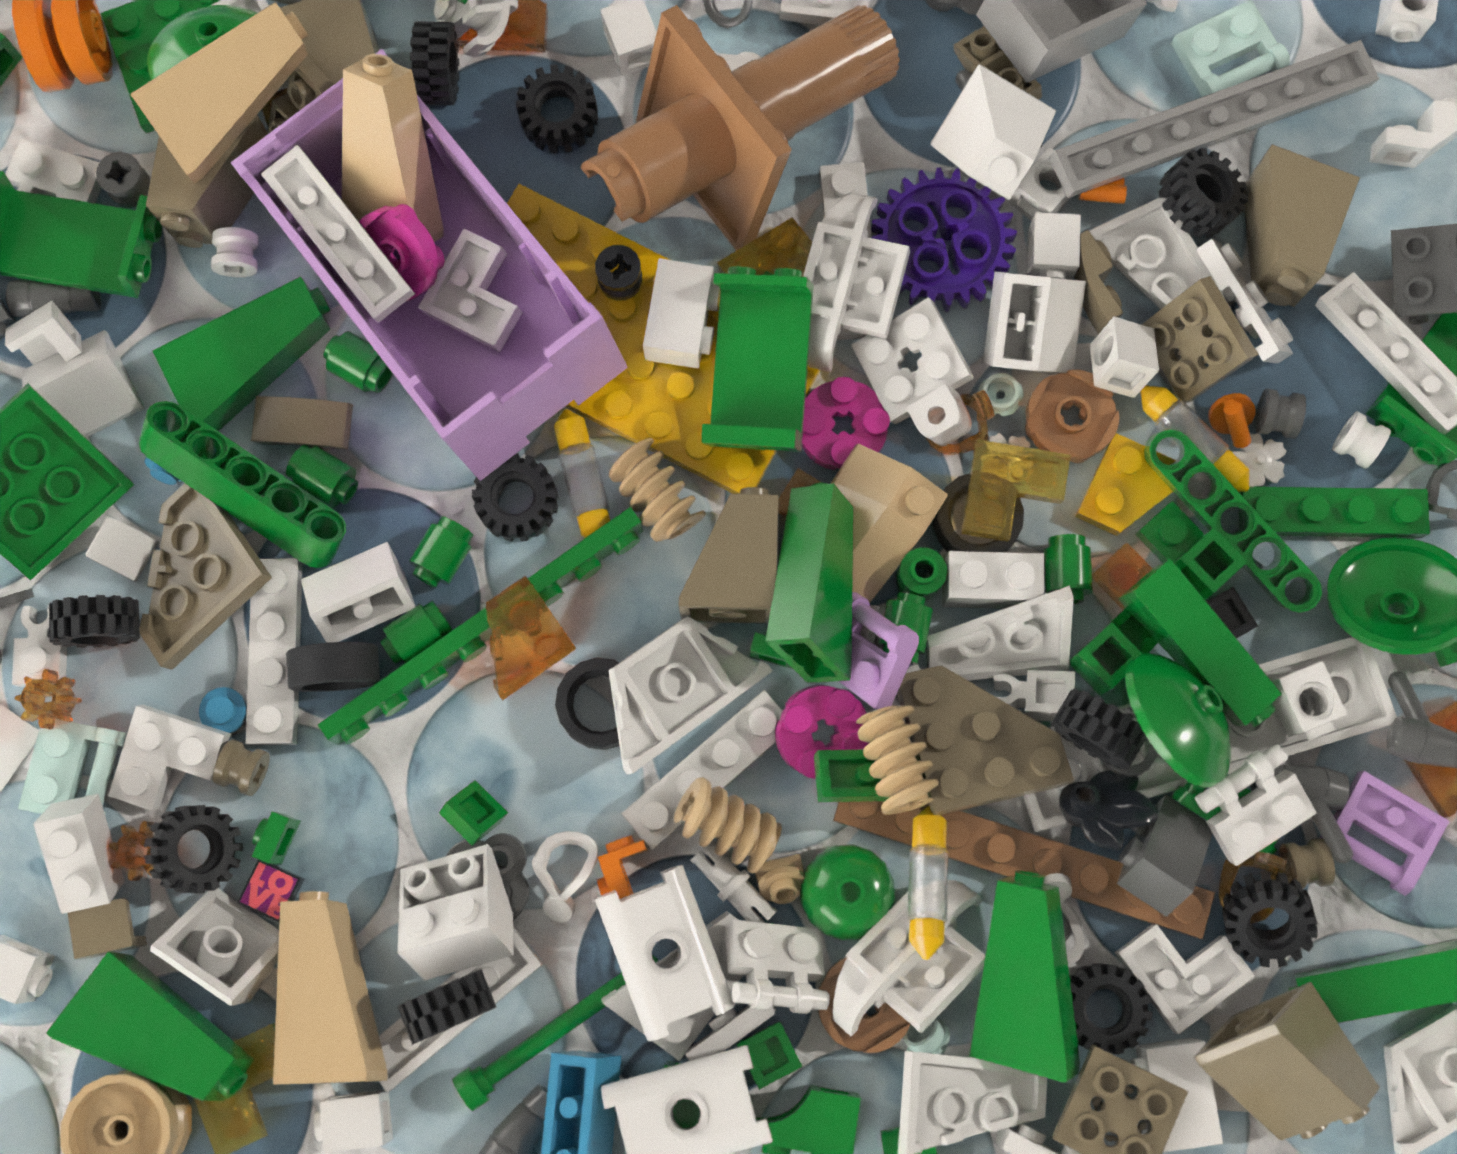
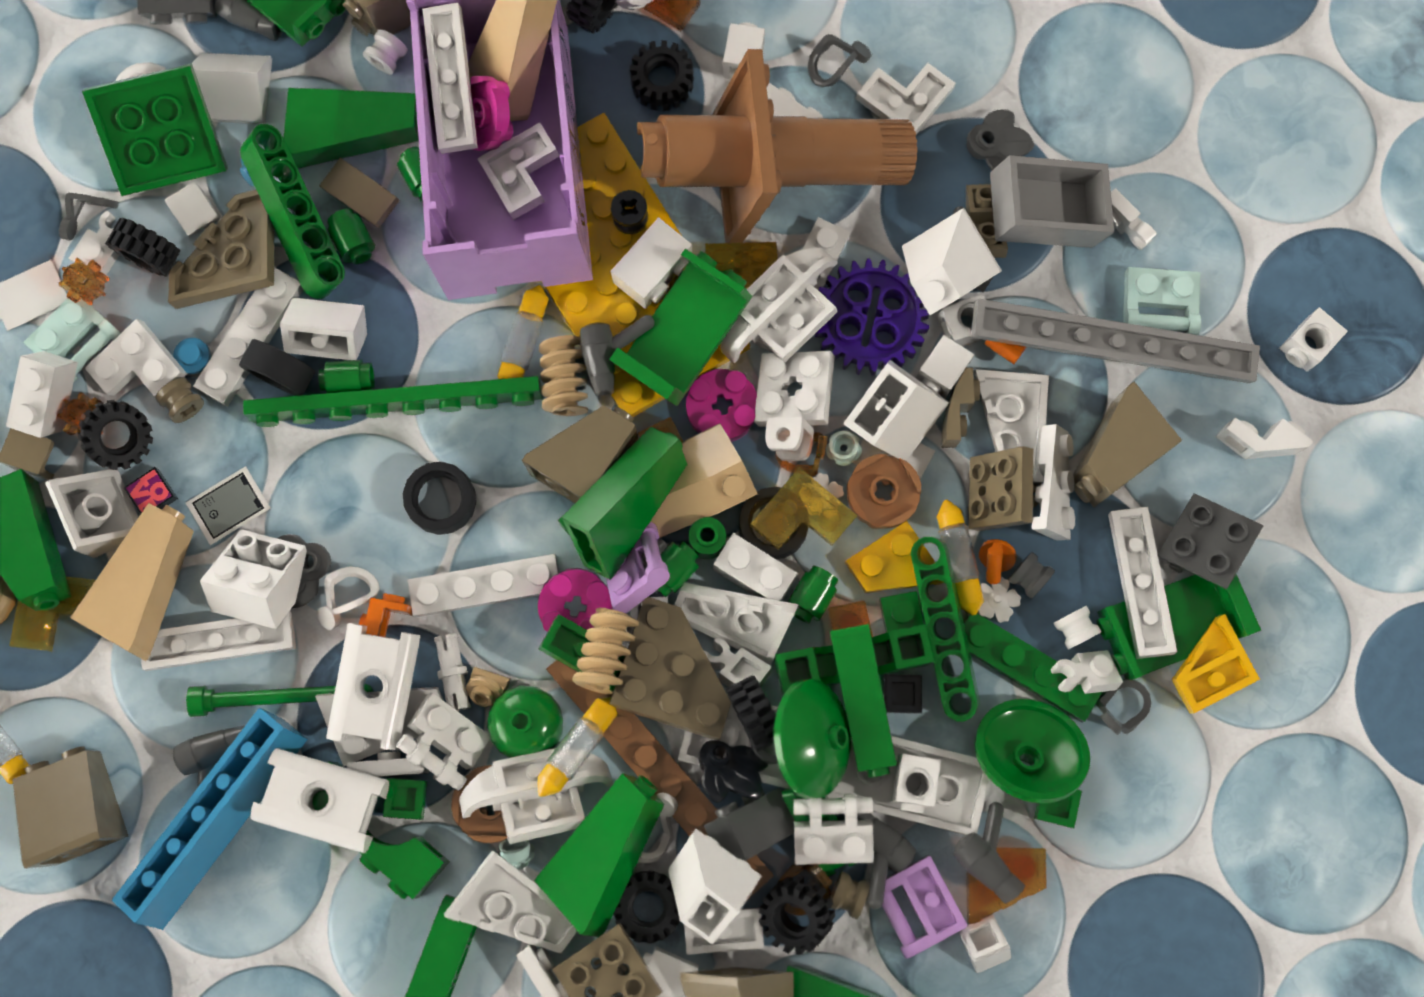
camera: 30 degrees right, 0 degrees up
(44, 335) = (227, 37): white panel -> none
(274, 837) = (173, 459): green plate -> none
(354, 1121) = (110, 675): white brick -> none
(366, 852) = (228, 505): none -> sticker
(441, 552) = (396, 333): green brick -> none
(446, 1006) = (209, 635): black tyre -> none
(473, 812) = (310, 520): green plate -> none
(523, 637) = (414, 422): clear orange wing -> none
(524, 523) = (473, 346): black tyre -> none
(675, 688) = (493, 515): white wing -> none
(680, 439) = (600, 345): none -> dark grey piece
(729, 822) = (471, 628): tan piece -> none
(1124, 357) = (943, 471): white brick -> none
(1169, 944) = (709, 885): none -> white slope
(1220, 184) = (1089, 384): black tyre -> none
(1404, 476) = (1090, 669): none -> white plate

